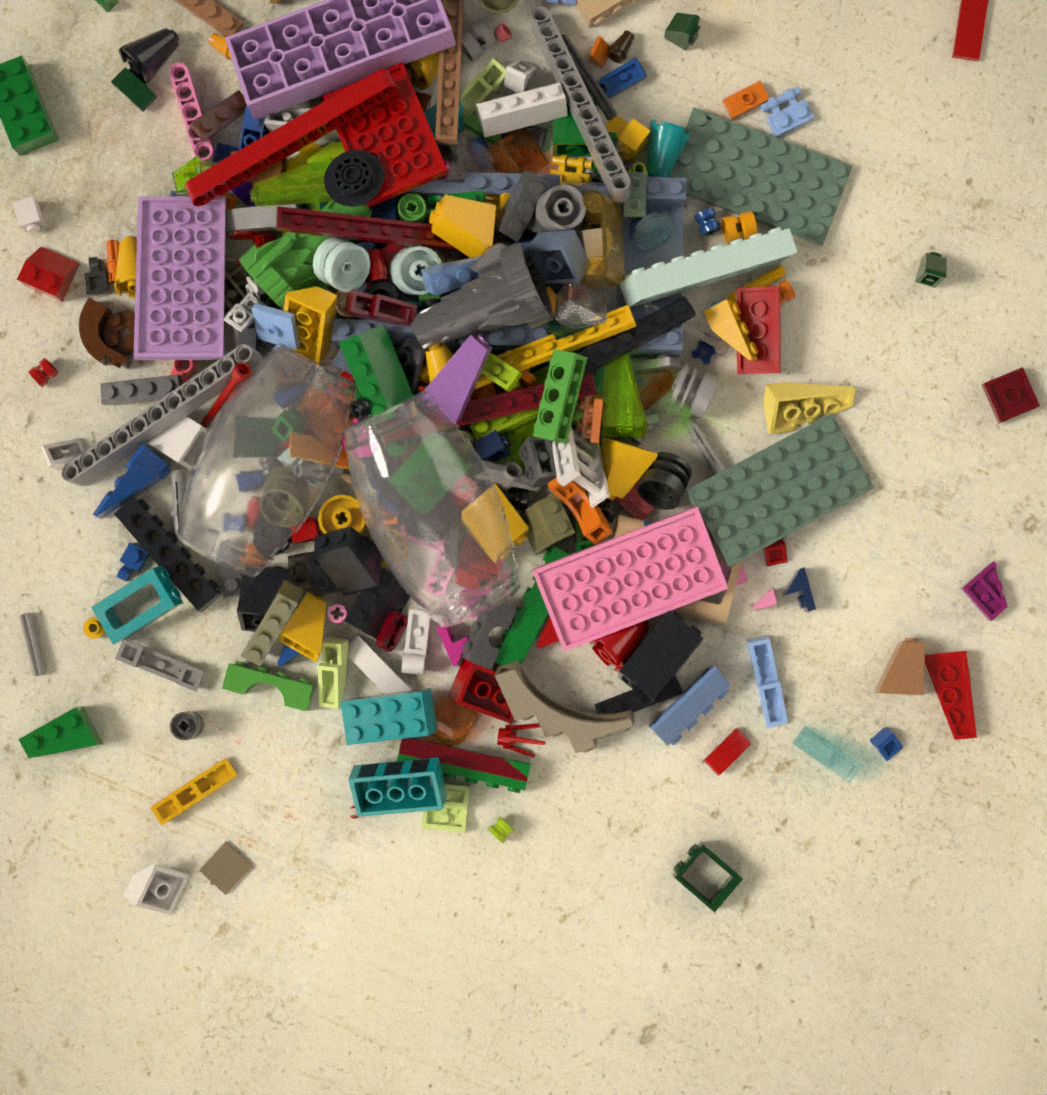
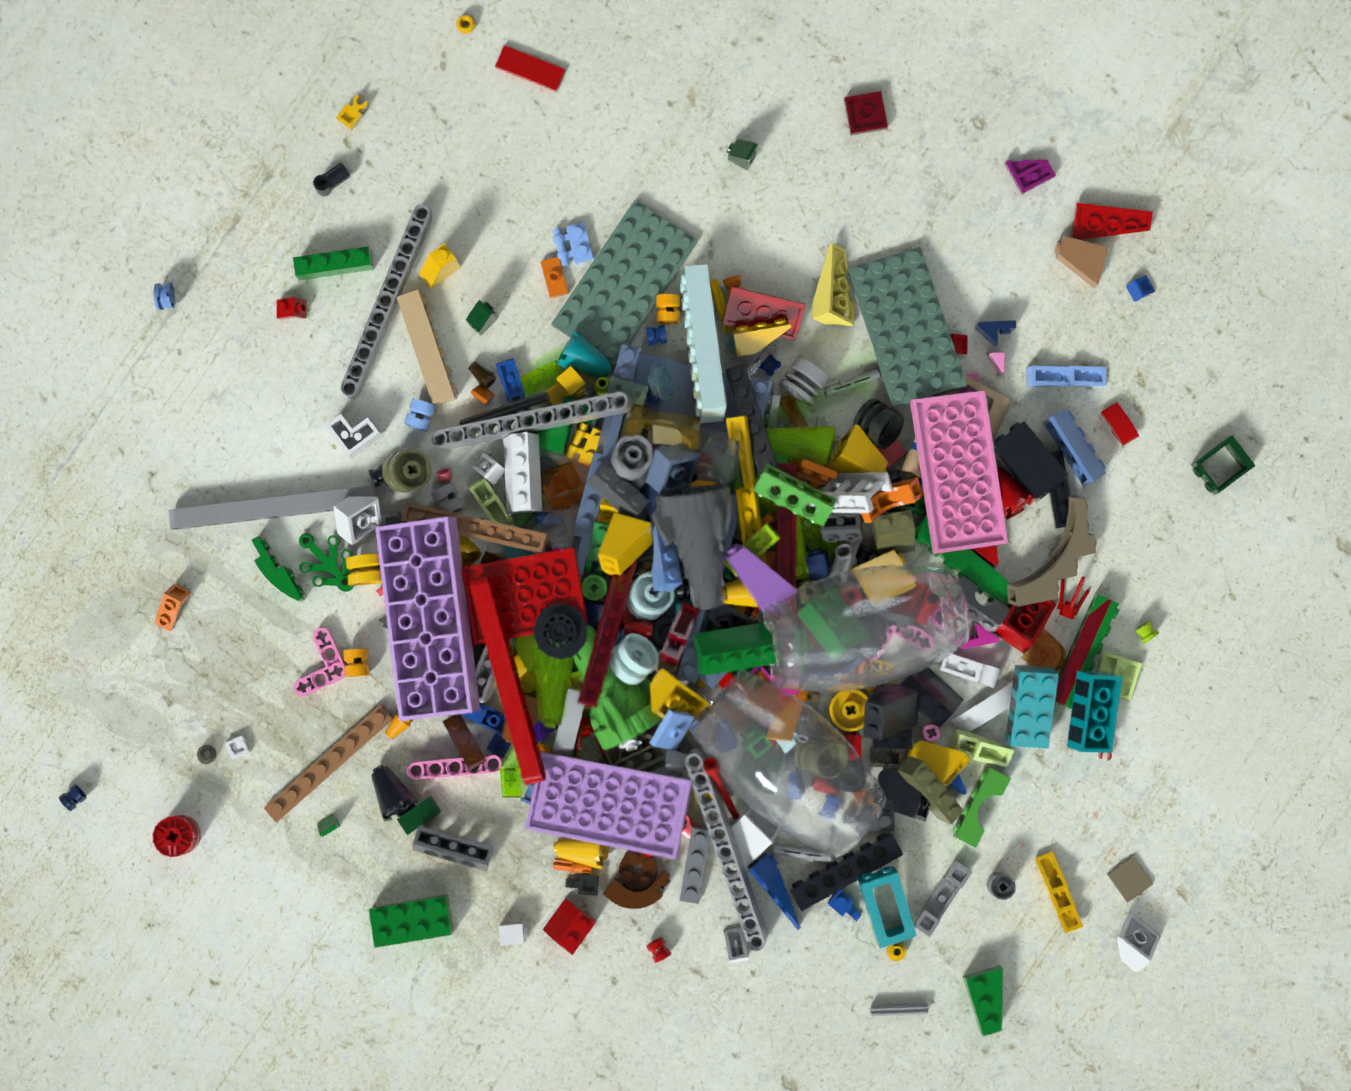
camera: 80 degrees left, 0 degrees up
(104, 130) = (452, 848): none -> dark grey brick
(241, 314) = (653, 755): white slope -> none
(360, 408) = (763, 670): black bush -> none
(392, 631) = (955, 689): dark red beam -> none
(632, 107) = (541, 377): none -> clear neon green slope
(827, 754) = (1140, 340): clear light blue slope -> none

